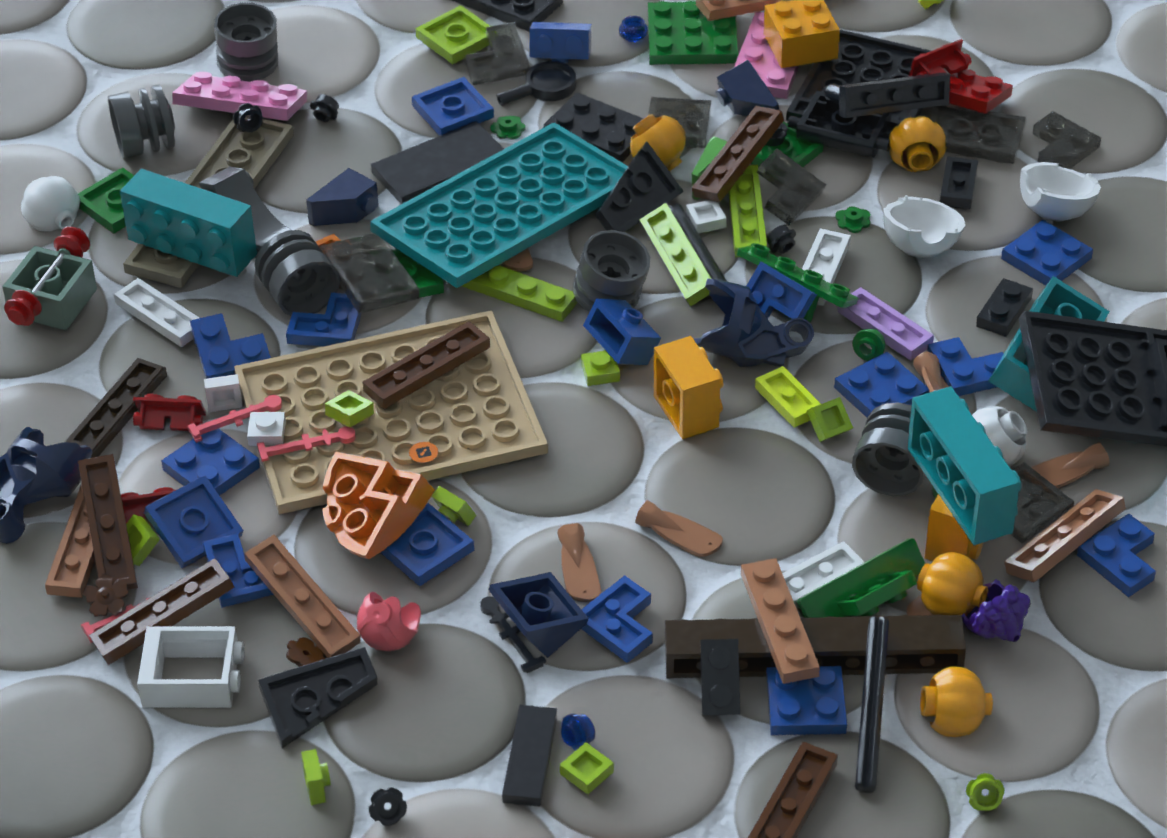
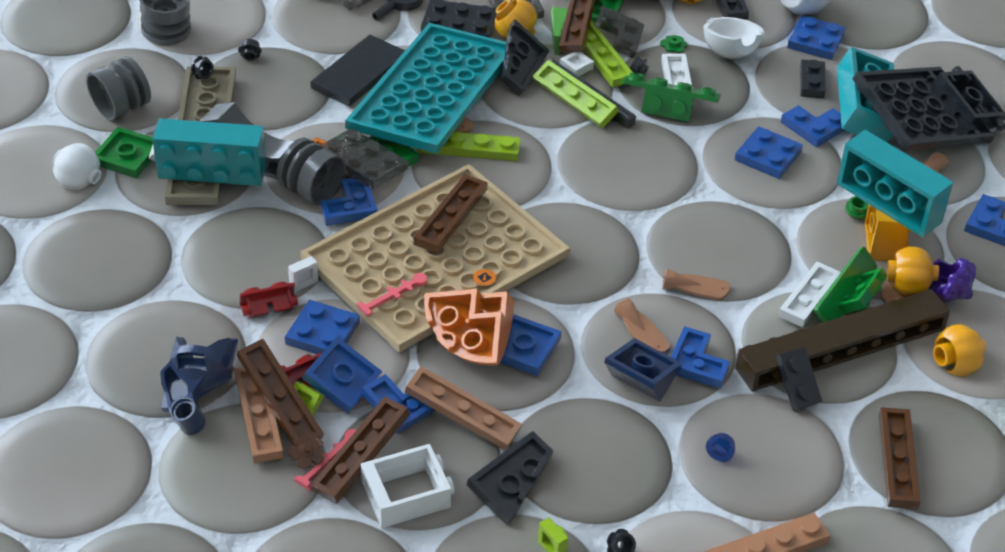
camera: 25 degrees left, 0 degrees up
(51, 284) = (119, 224): sand green brick -> none
(117, 406) = (222, 304): dark brown tile -> none
(156, 311) = (214, 226): white plate -> none
(221, 354) = (281, 246): blue plate -> none
(230, 93) = (179, 55): bright pink plate -> none
(266, 428) = (357, 290): white plate -> none
(271, 403) = (348, 271): coral piece -> none
(303, 652) = (485, 450): reddish brown plant -> none
(343, 200) = (308, 111): dark blue slope -> none
(349, 408) = (414, 259): lime plate -> none
(386, 624) = (537, 411): coral cap -> none
(452, 106) = (345, 27): blue plate -> none
(453, 507) = (530, 310): lime plate -> none
(491, 607) = (596, 376): black piece -> none
(508, 127) = (392, 34): green plant -> none
(529, 755) = (695, 475): black tile -> none
(586, 768) = (744, 471): lime plate -> none
(599, 368) = (567, 186): lime plate -> none
(611, 268) = (544, 117): dark grey wheel -> none
(622, 331) = (573, 155): blue brick -> none
(687, 387) = (647, 182): light orange brick -> none
(746, 331) = (663, 136): dark blue piece -> none
(780, 292) = (664, 101): blue plate -> none
(780, 621) = (819, 326): nougat plate -> none
(786, 395) = (712, 173): neon yellow plate -> none
(808, 704) = (858, 379): blue plate -> none
(829, 419) = (752, 181): lime plate -> none
(871, 337) = (743, 118): green plate -> none
(872, 704) = (913, 367): black axle -> none
(882, 452) = (814, 189): dark grey wheel -> none
(898, 331) = (747, 108): lavender plate -> none
(928, 368) = (793, 131): nougat piece -> none
(1064, 535) = (950, 232): nougat plate -> none

